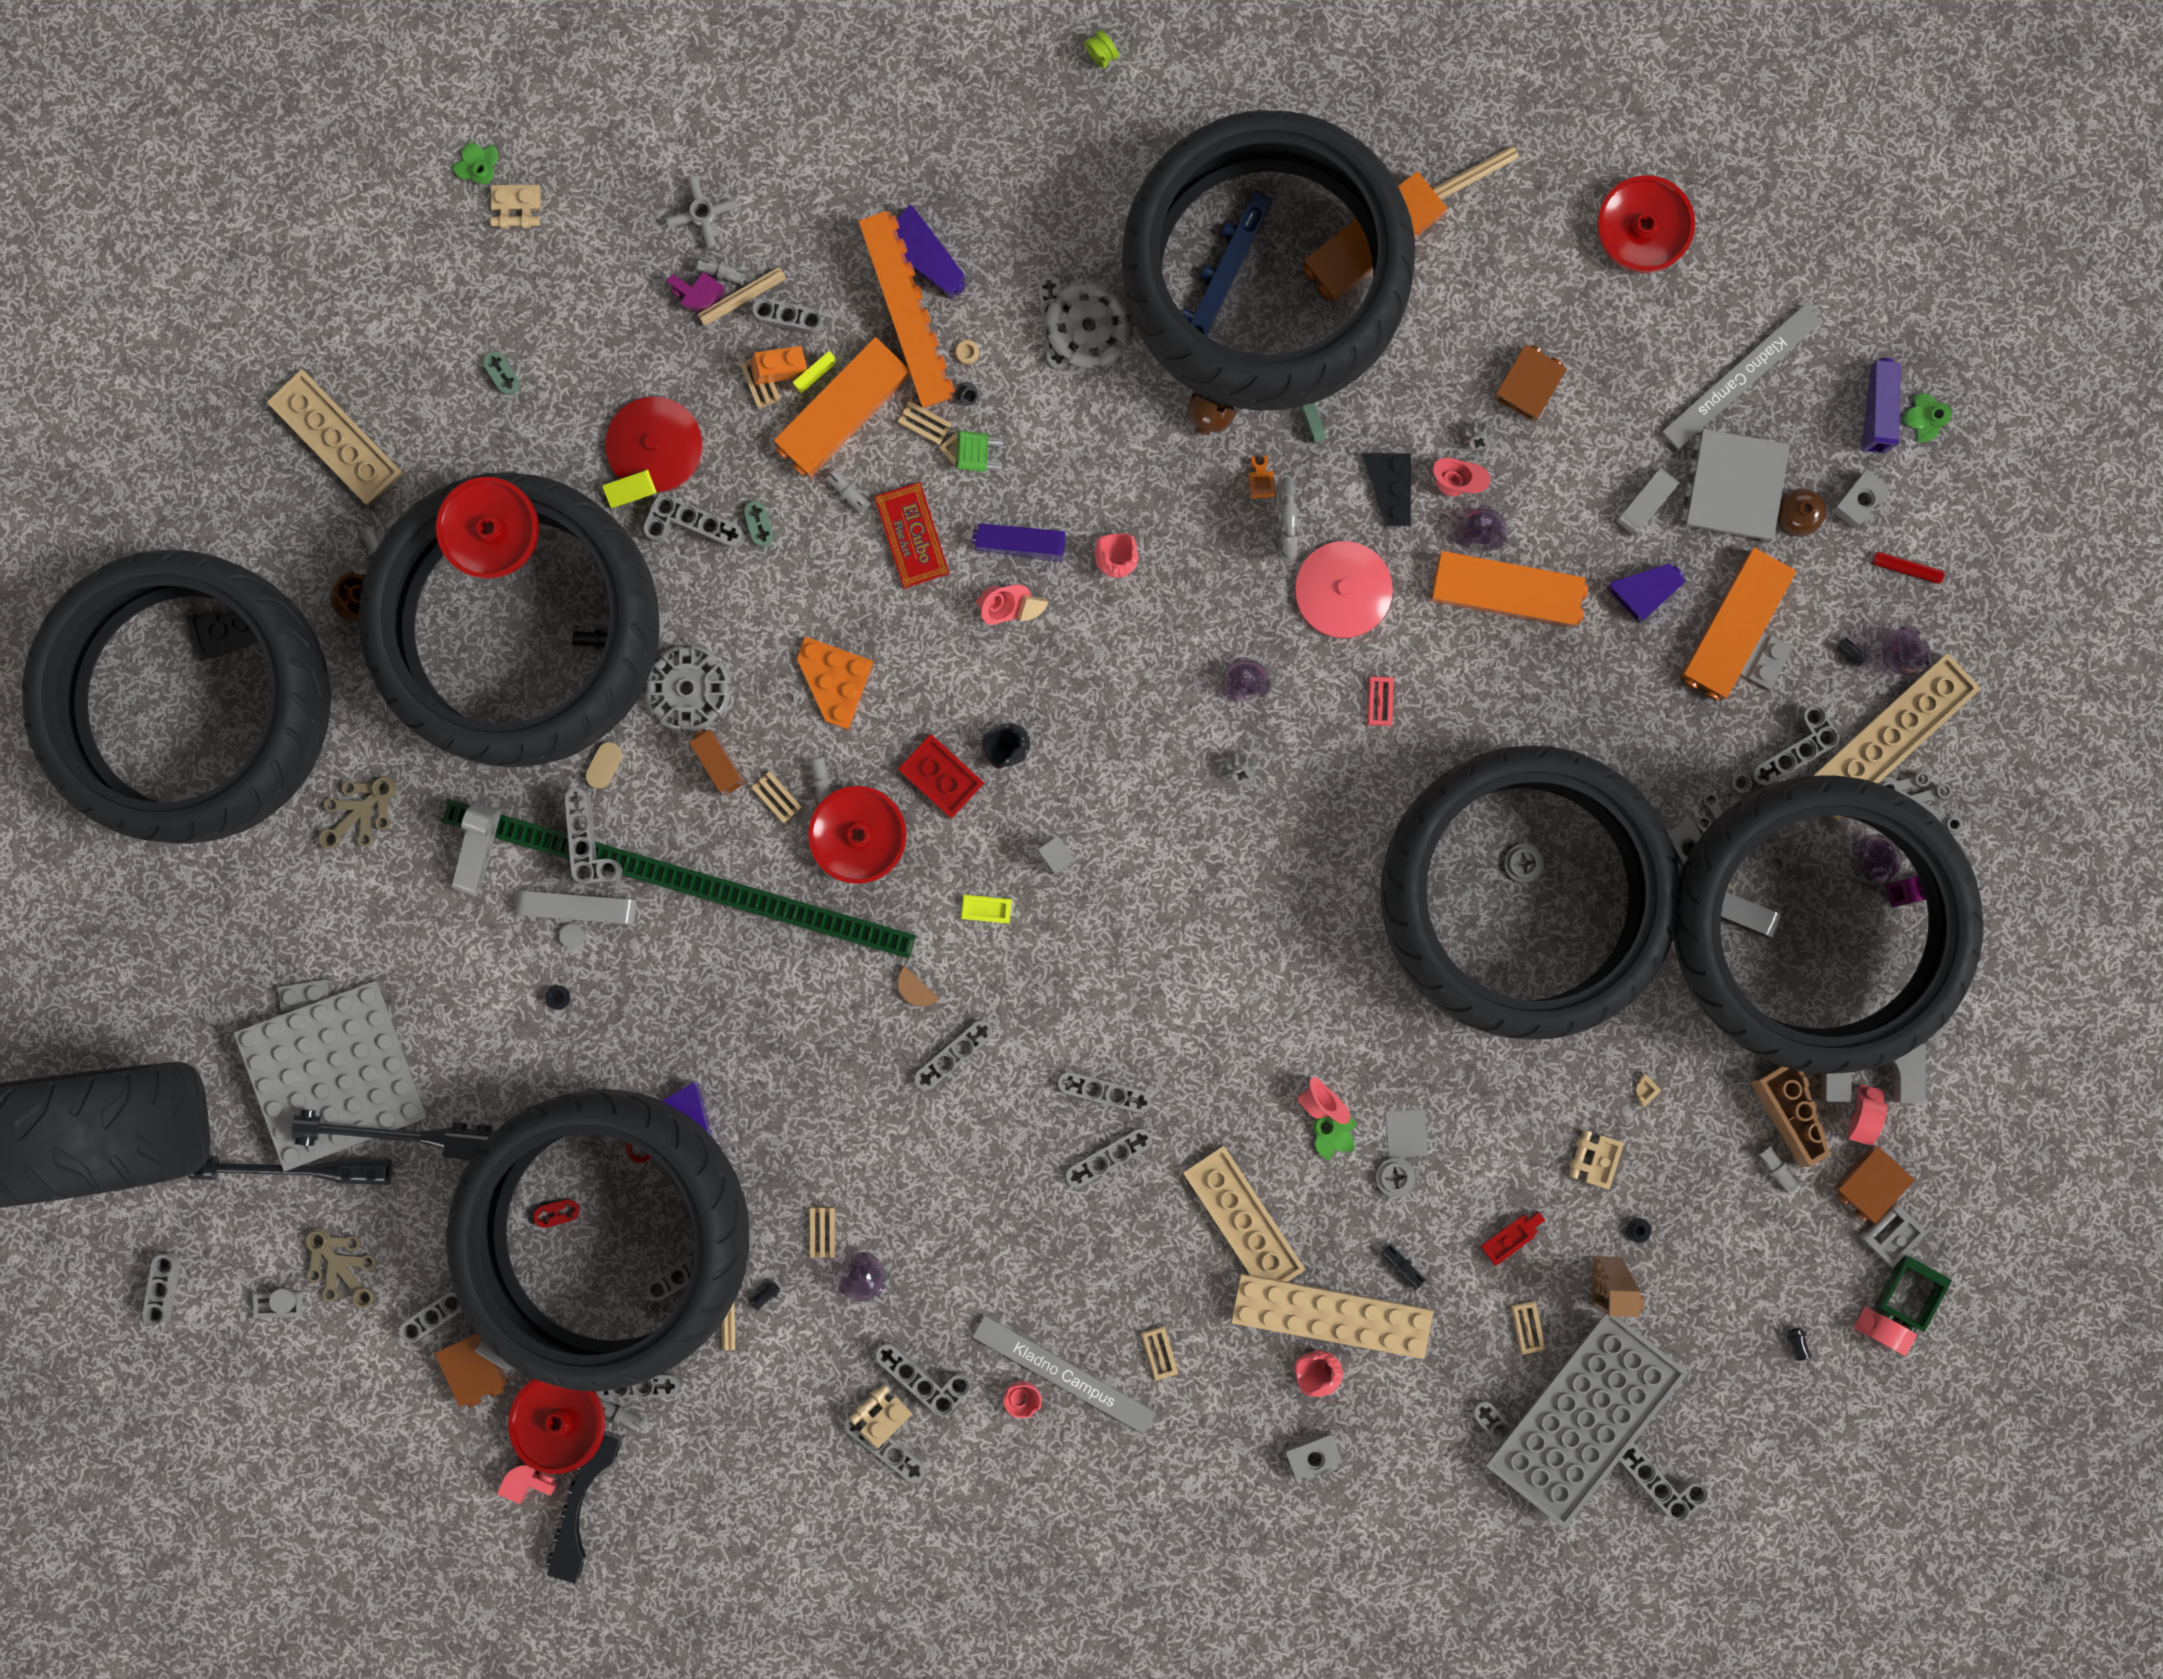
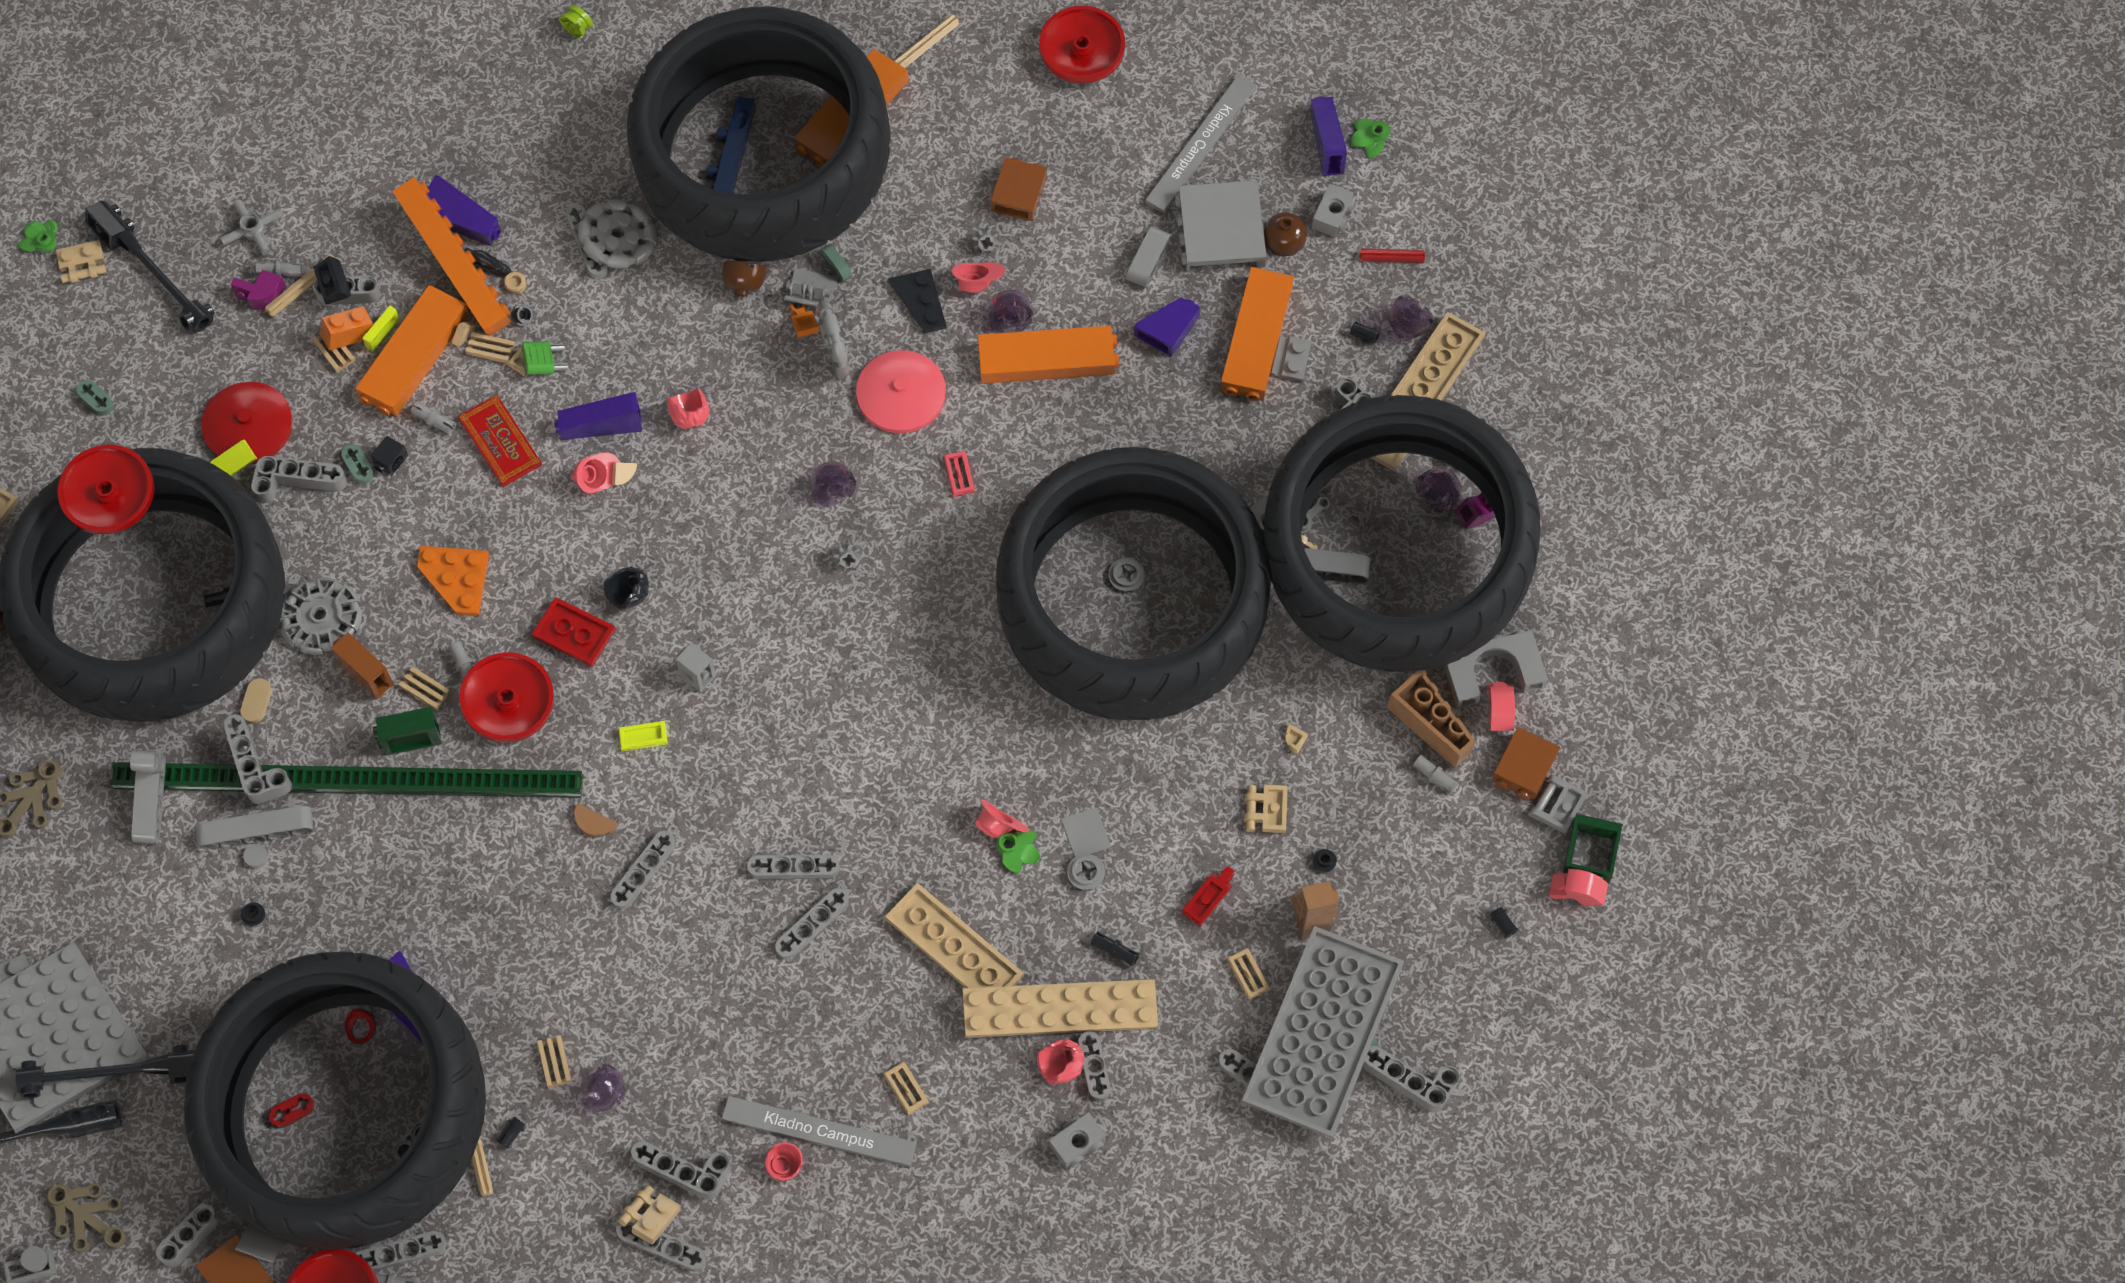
camera: 20 degrees left, 20 degrees down
(560, 182) = (116, 232): none -> black bar
(749, 847) = (407, 731): none -> dark green window
(774, 306) = (332, 280): none -> black slope
(792, 525) = (388, 456): none -> black brick
(900, 398) = (463, 332): none -> tan tile
(942, 319) = (488, 262): none -> black piece
(1278, 444) = (810, 287): none -> light grey hinge
(1354, 1400) = (1091, 1084): none -> light grey beam

